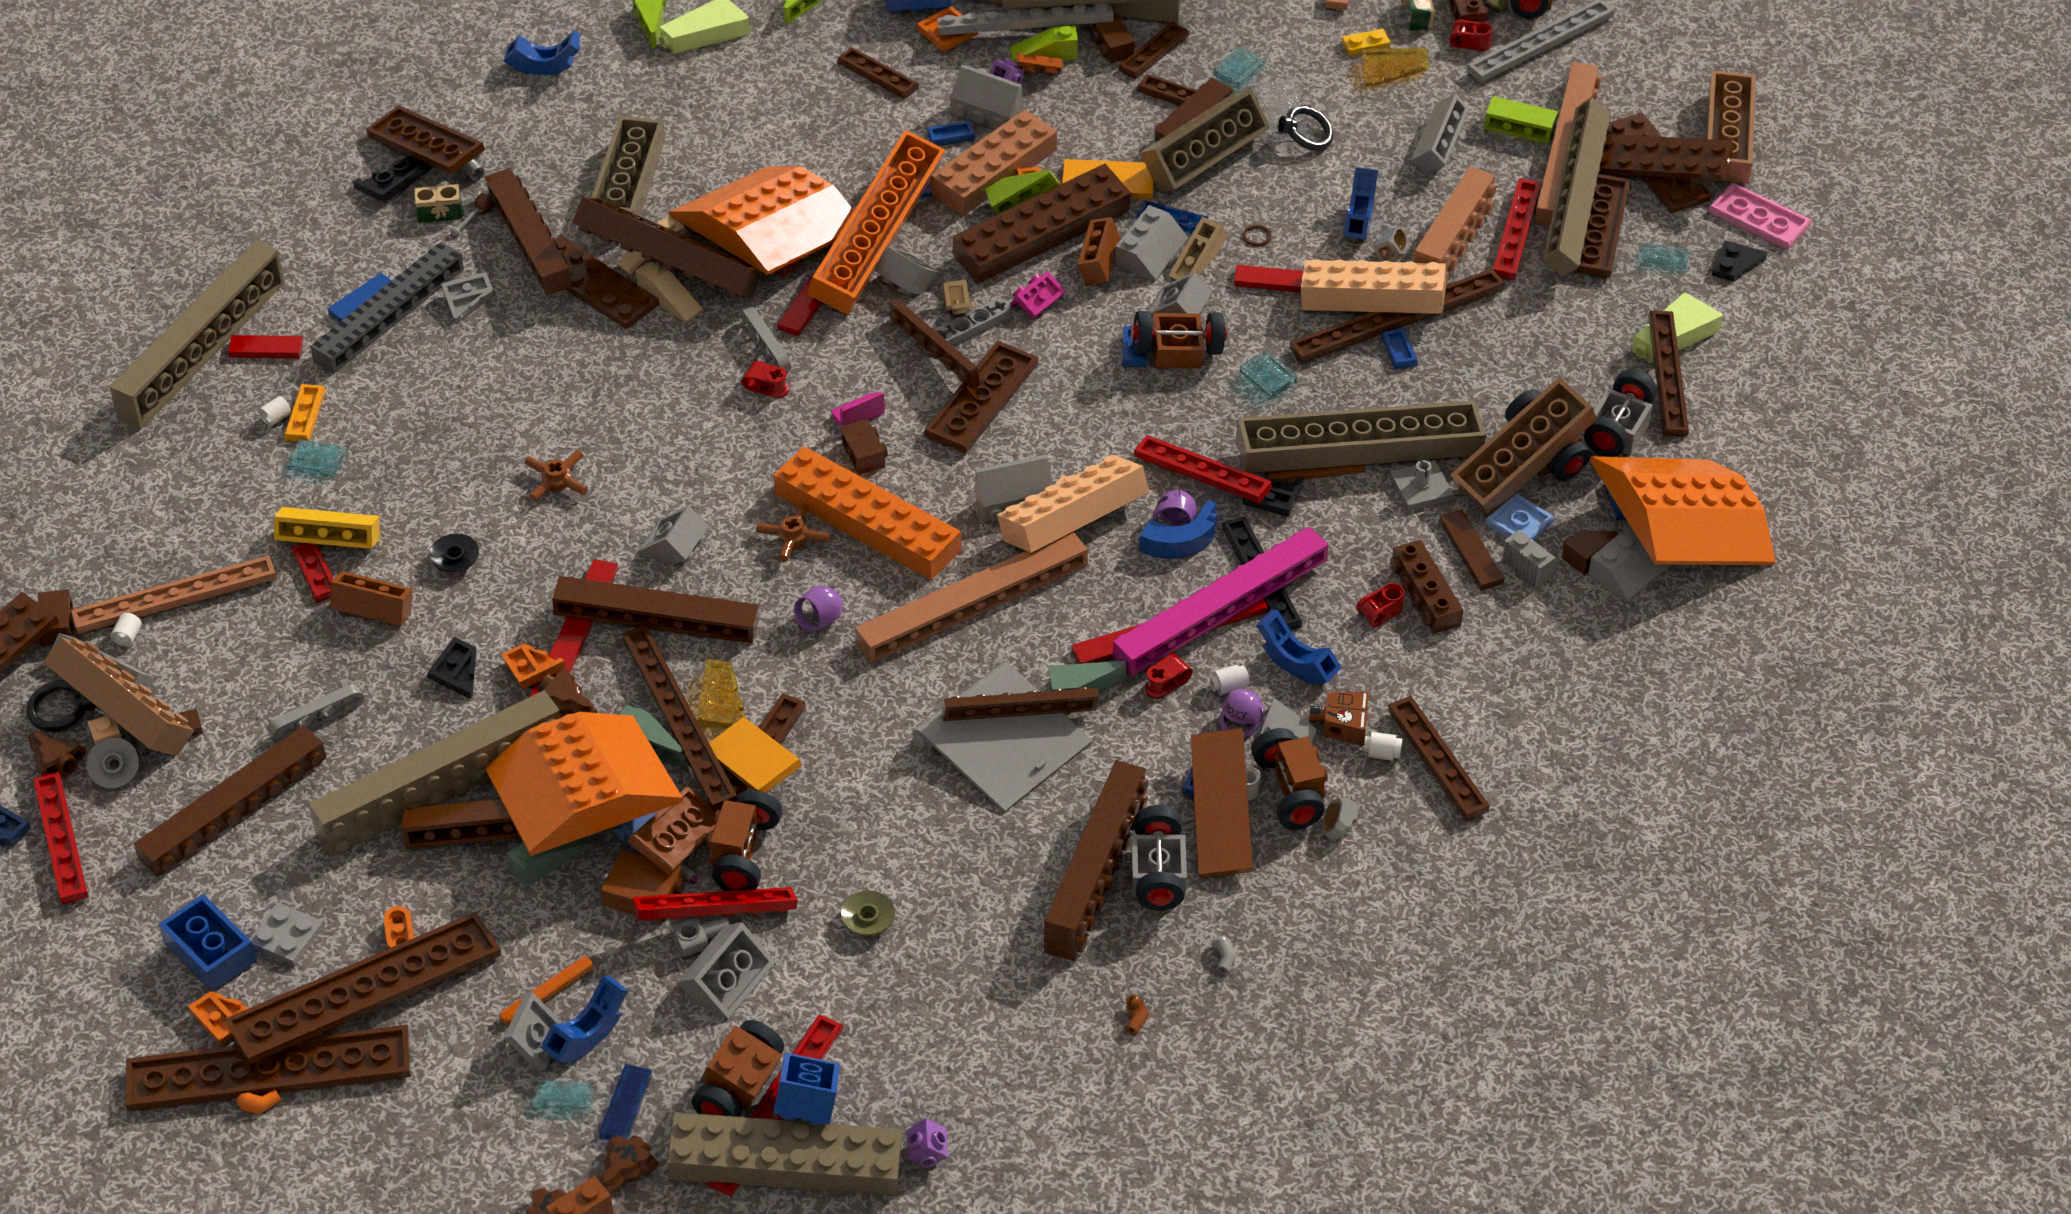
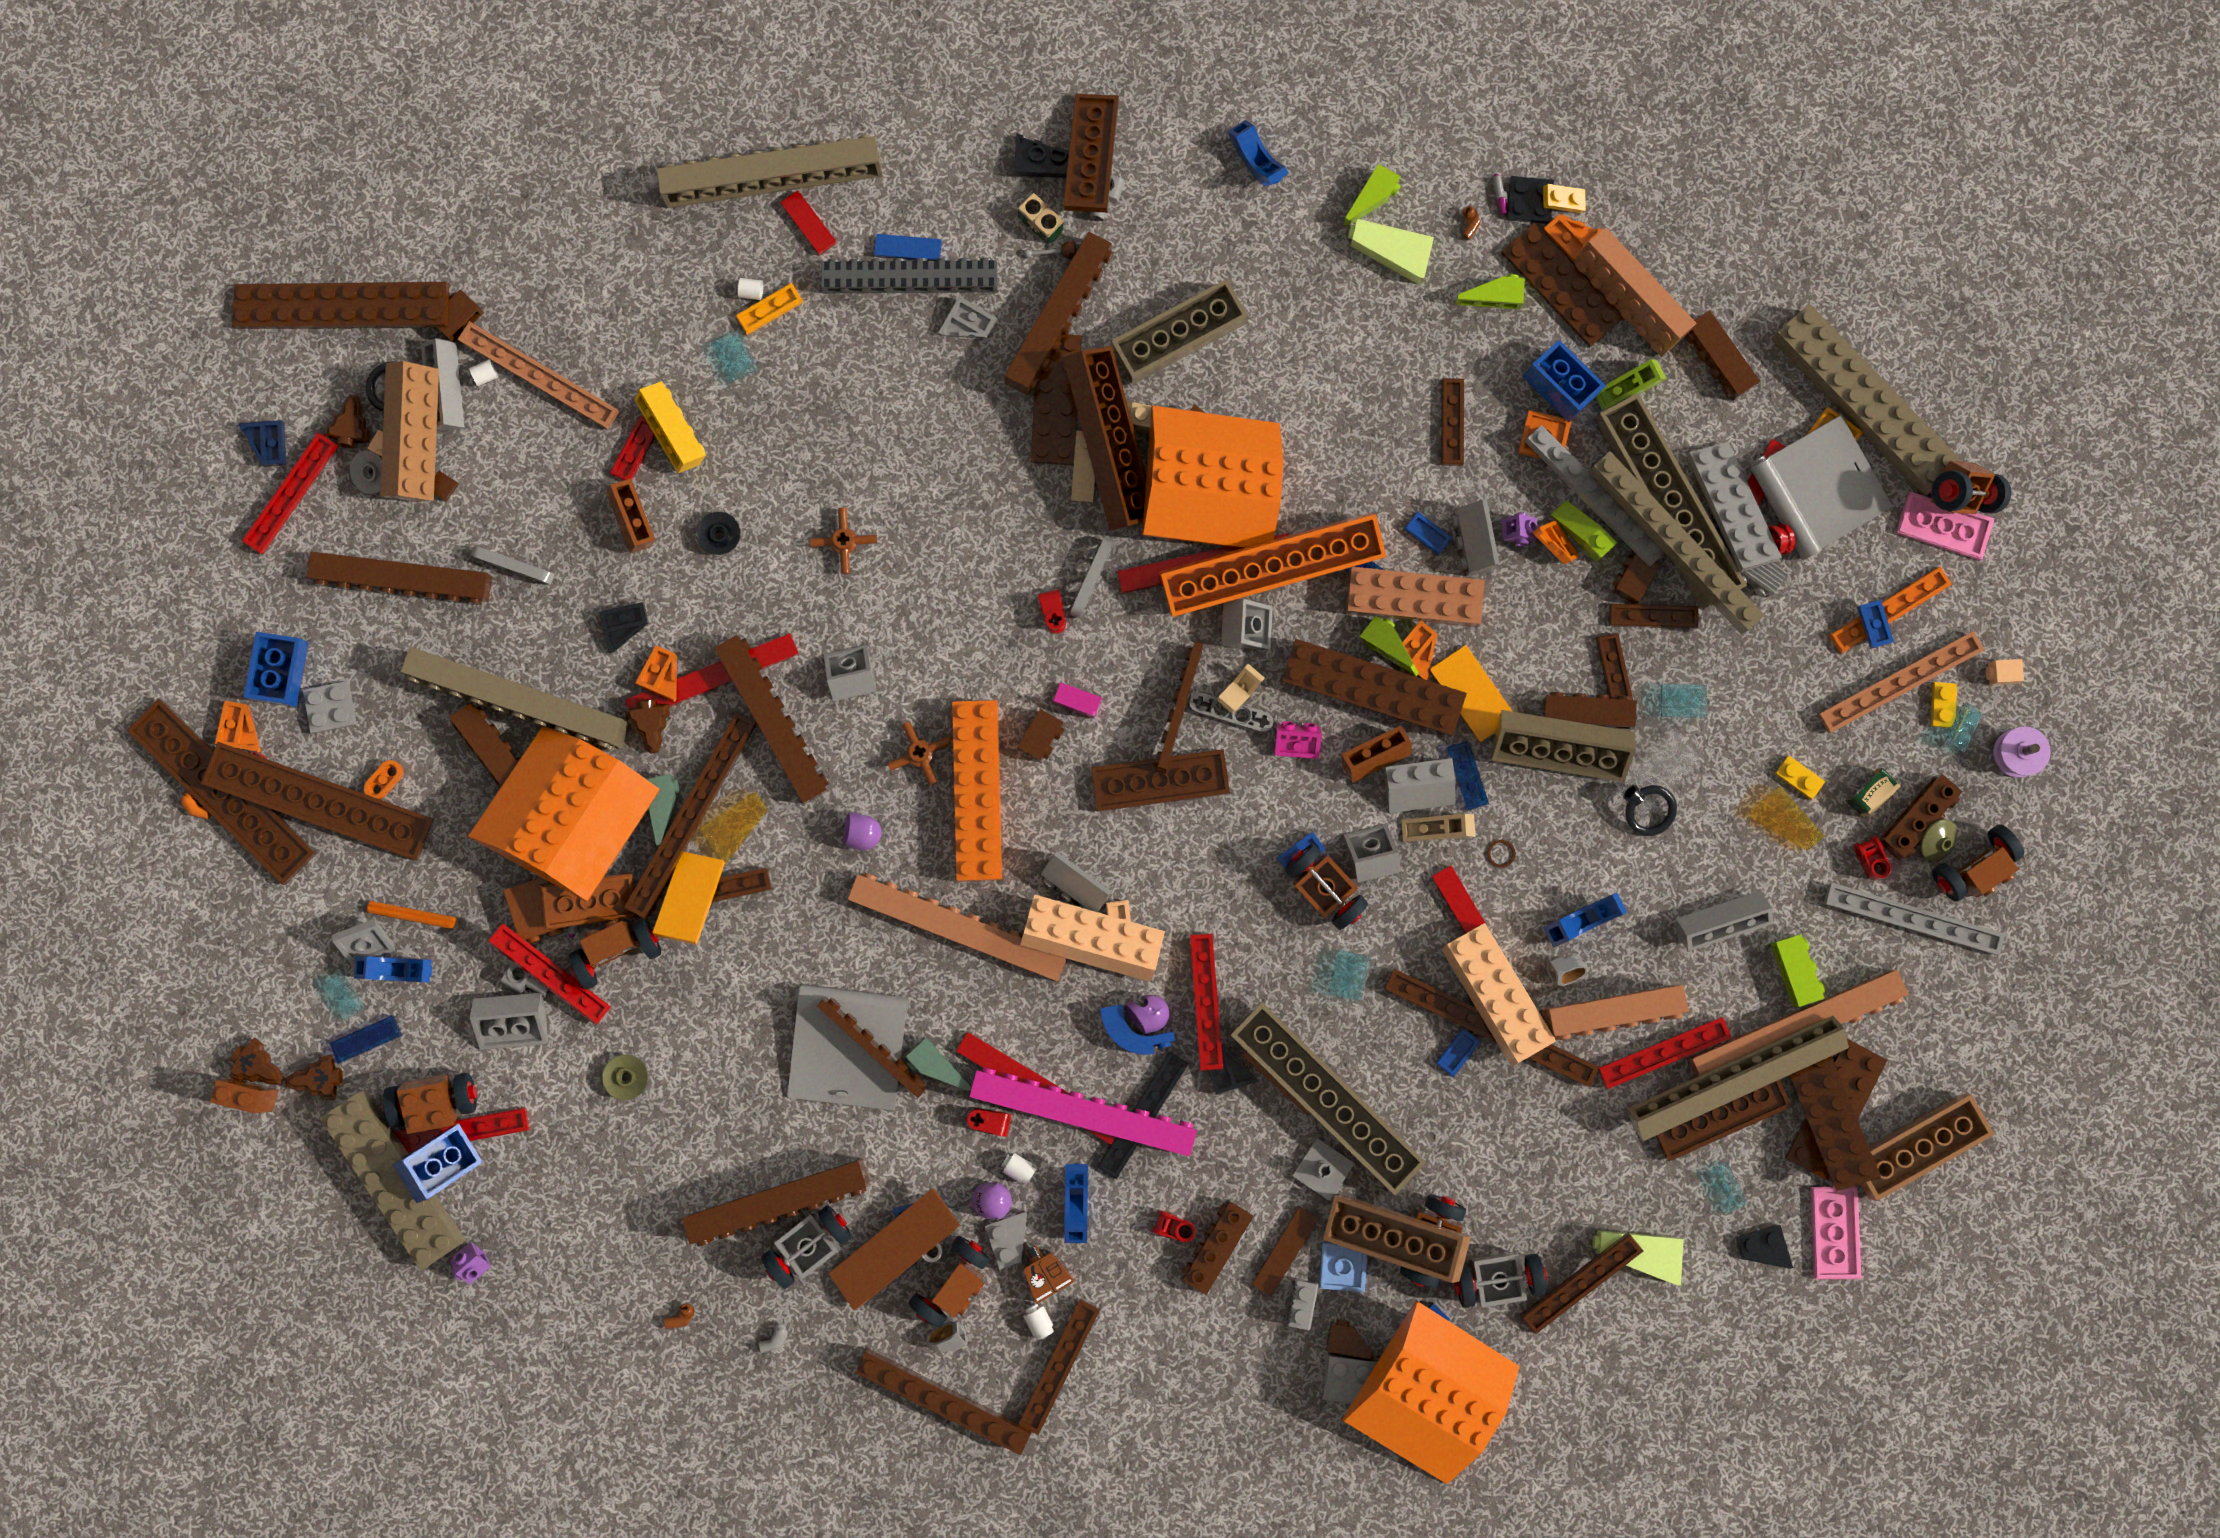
camera: 50 degrees right, 35 degrees up
(1396, 855) = (943, 1401): none -> reddish brown brick

